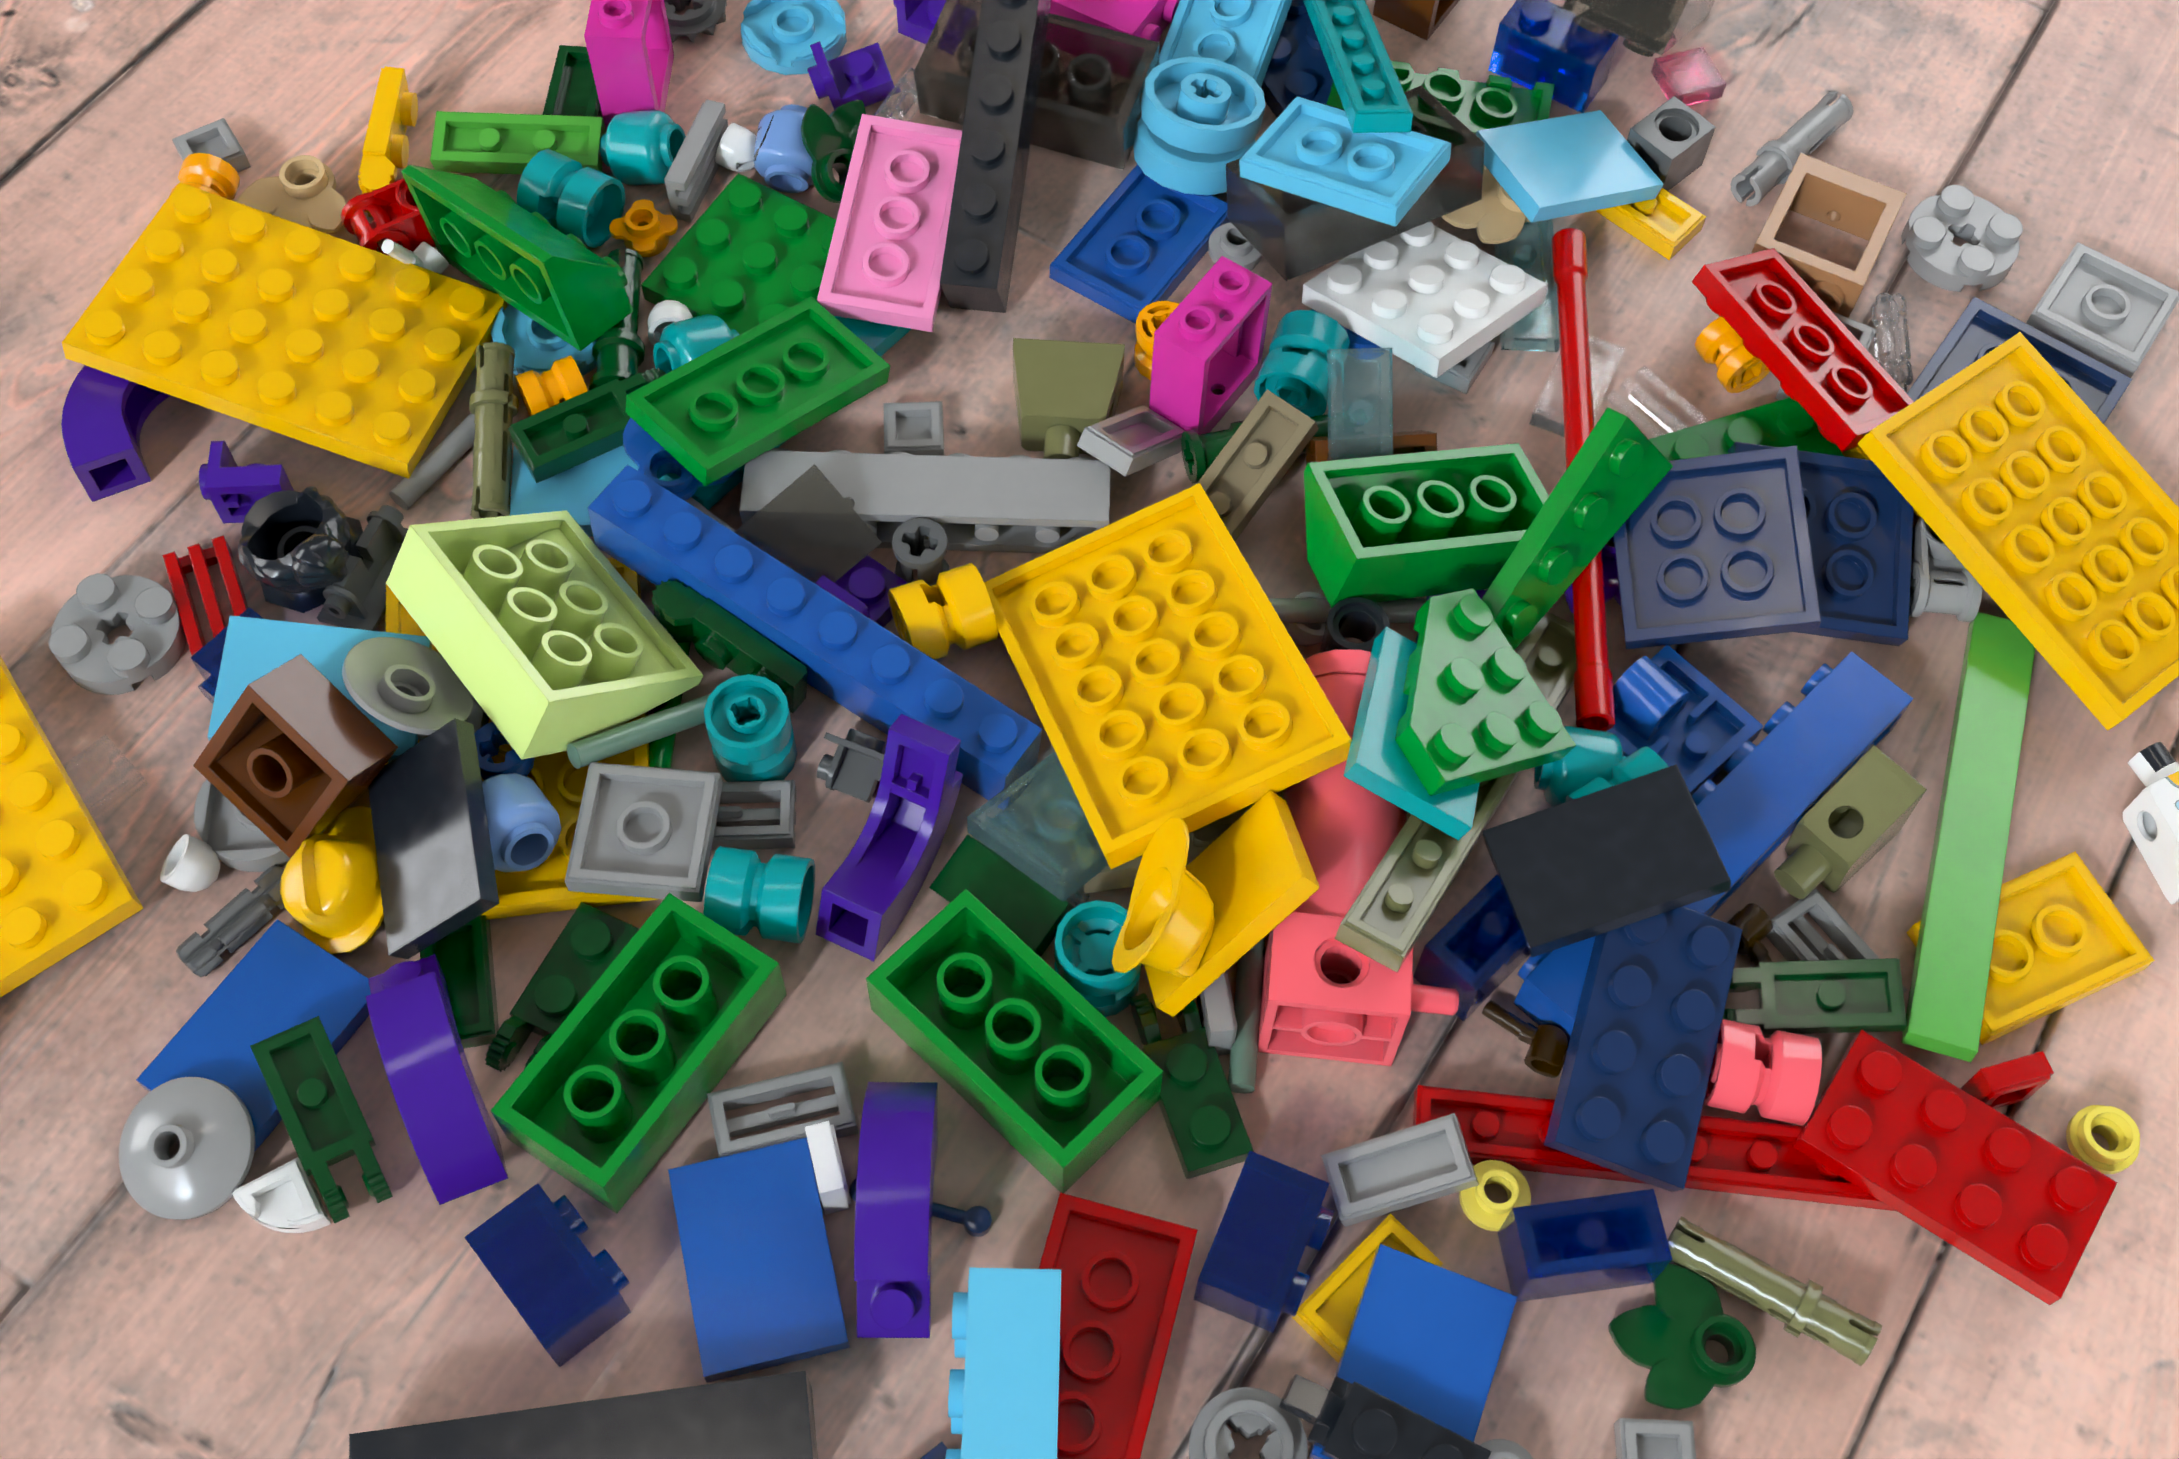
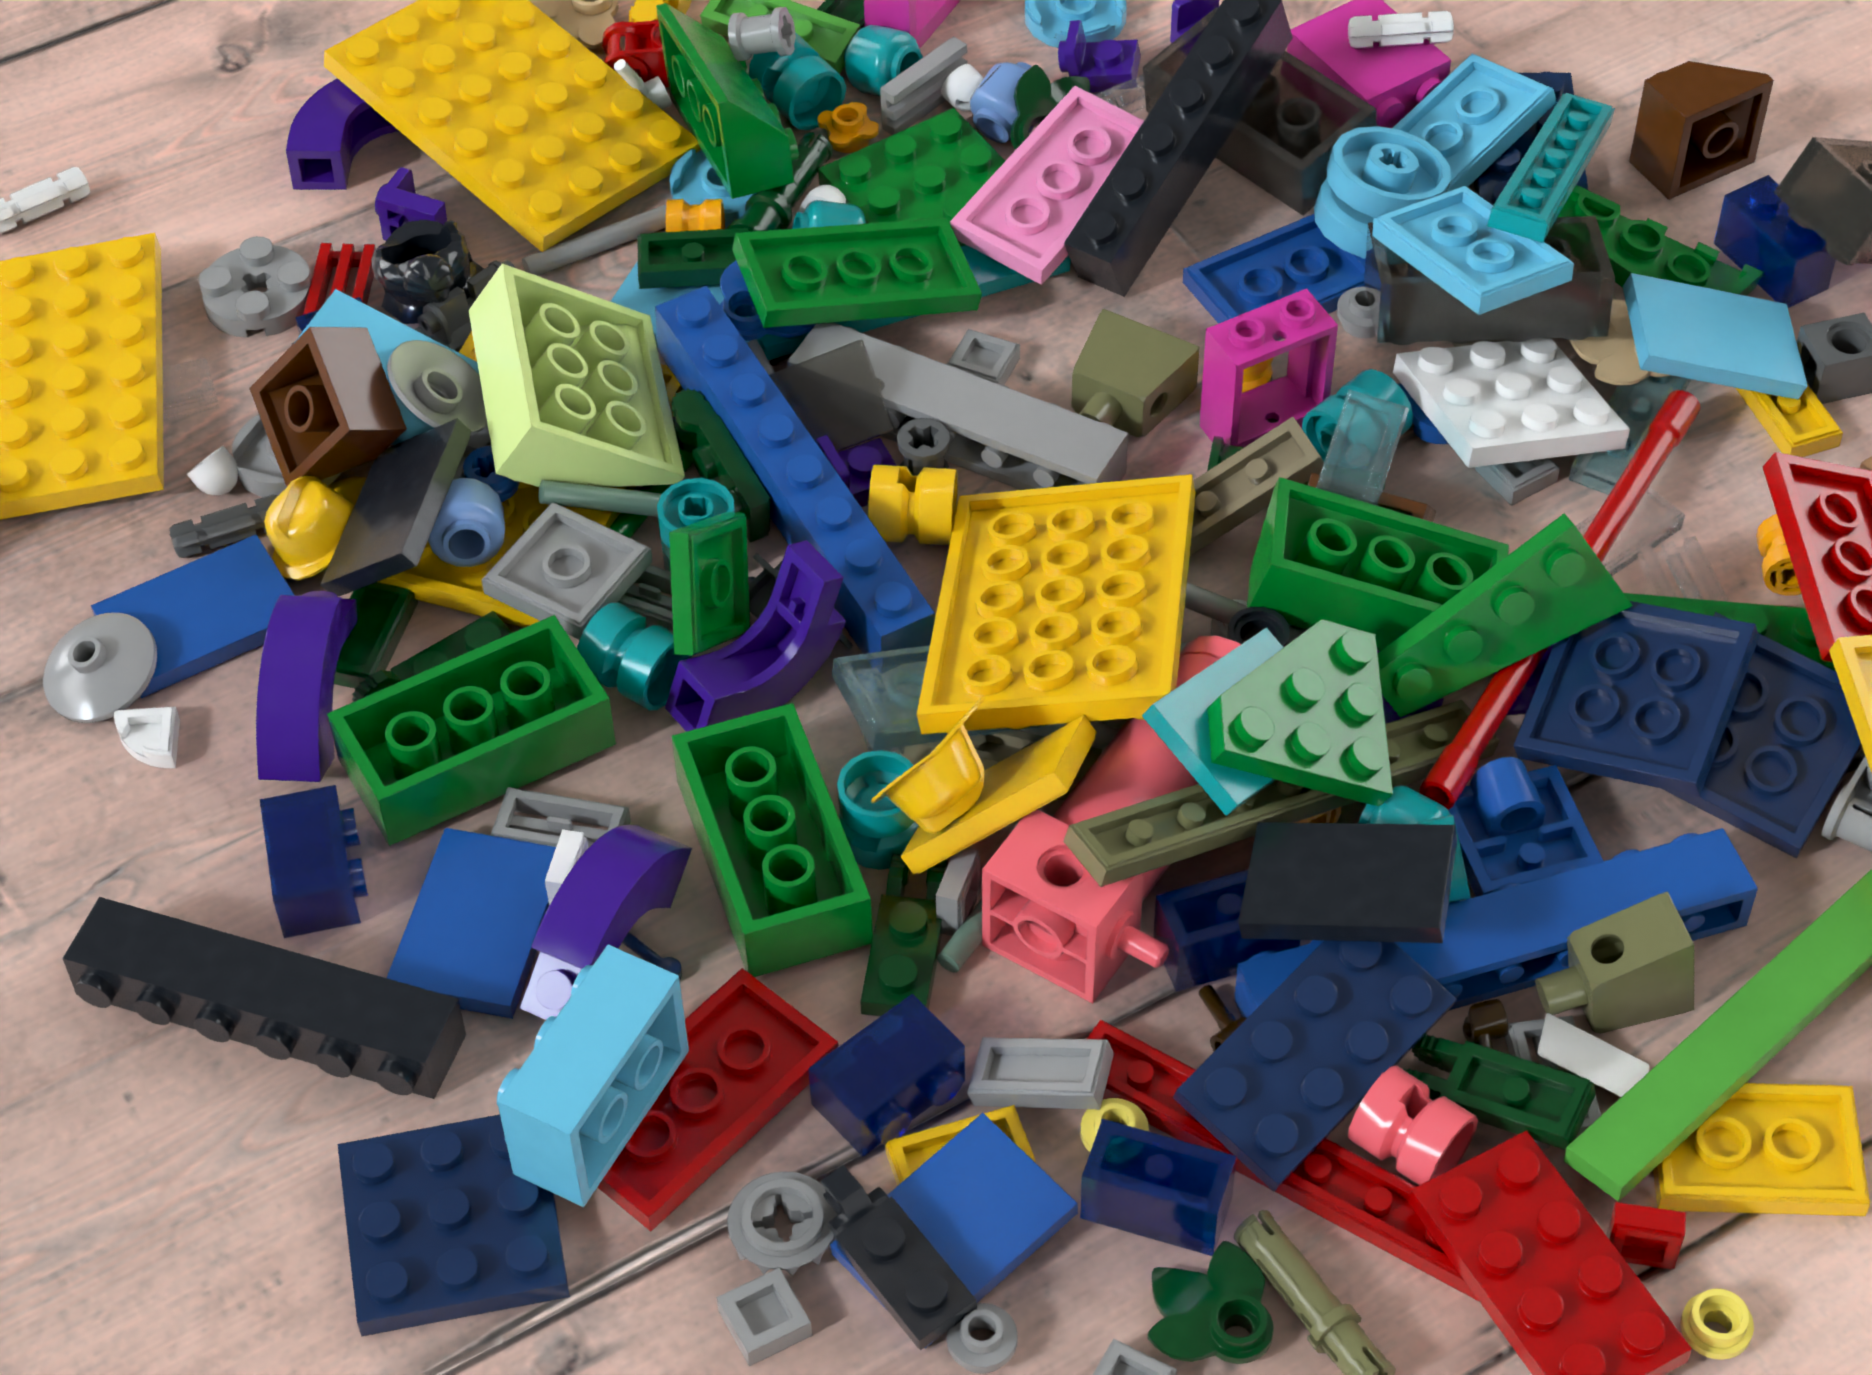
camera: 30 degrees right, 10 degrees down
(319, 1110) = (208, 677): dark green hinge -> none
(493, 413) = (636, 217): olive pin -> none
(523, 164) = (761, 34): none -> light grey bush
(808, 790) = (709, 582): none -> green tile
(1005, 891) = (830, 730): dark green tile -> none
(1132, 440) = (1161, 426): light grey tile -> none
(1859, 924) = (1589, 1056): none -> white sticker

